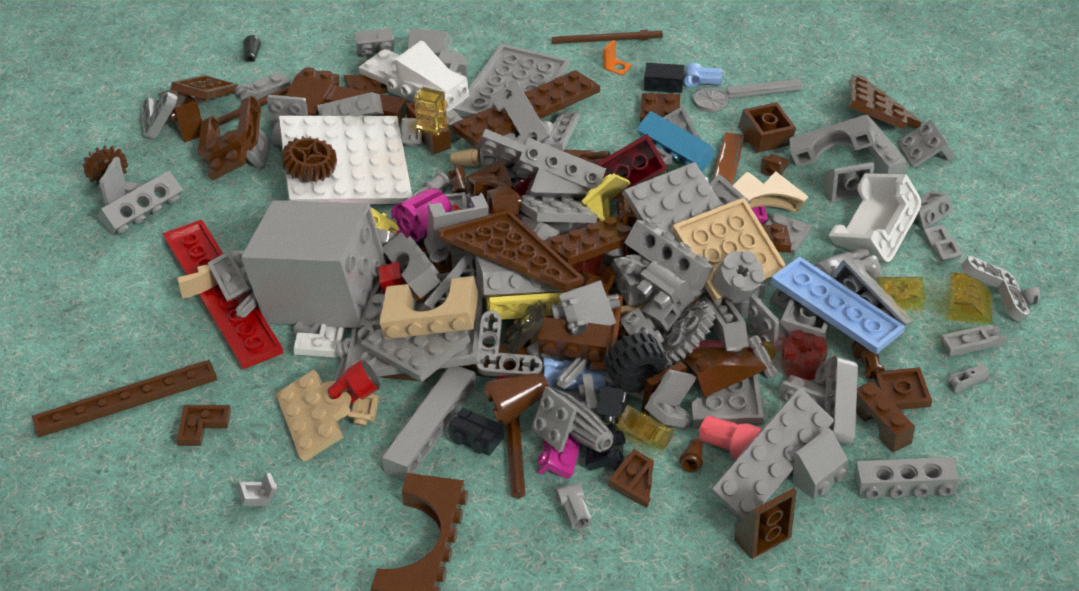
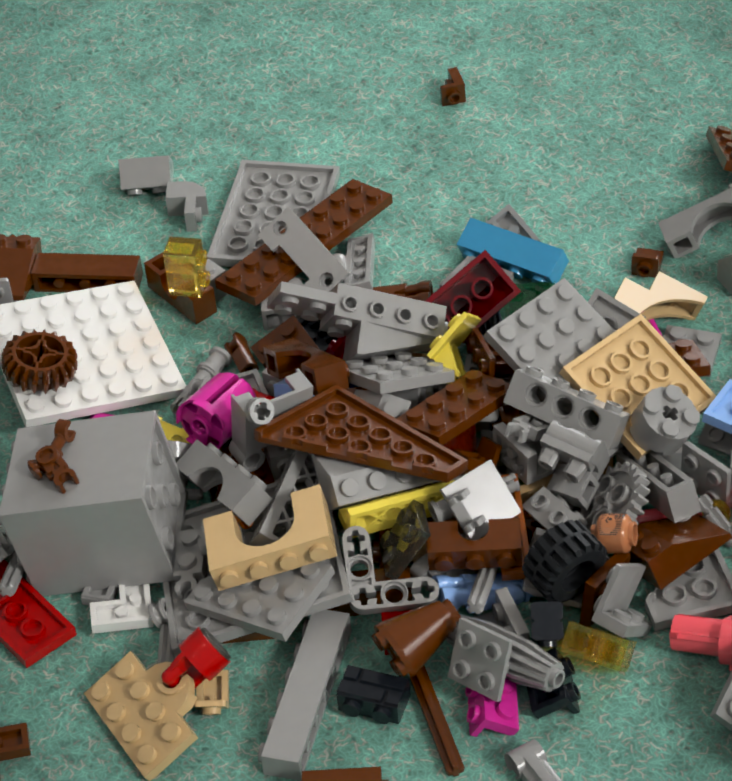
camera: 10 degrees left, 0 degrees up
(286, 223) = (50, 459): none -> reddish brown piece
(361, 105) = (77, 277): light grey brick -> none
(365, 84) = (78, 242): reddish brown wing -> none
(374, 41) = (72, 184): light grey bracket -> none
(390, 275) = (198, 503): red brick -> none
(409, 132) = (159, 299): light grey bracket -> none
(413, 70) = (142, 220): white wedge -> none
(437, 219) = (252, 416): none -> light grey bush
(467, 158) = (243, 321): tan cone -> none
(610, 60) = (390, 158): orange bracket -> none
(634, 478) = (603, 718): reddish brown wing -> none
(644, 35) = (422, 117): reddish brown bar -> none
(659, 104) = (477, 205): reddish brown plate -> none
(664, 77) = (469, 170): black brick -> none
(671, 19) = (454, 88): none -> reddish brown bracket
(678, 349) = (616, 532): none -> nougat head
(692, 457) = (668, 674): reddish brown cone -> none
(699, 75) = (510, 159): light blue piece -> none
(710, 99) = (537, 188): light grey wheel -> none
(729, 156) = (585, 261): dark orange tile -> none
(764, 88) = (600, 162): light grey axle -> none
(766, 127) = (624, 213): reddish brown brick -> none

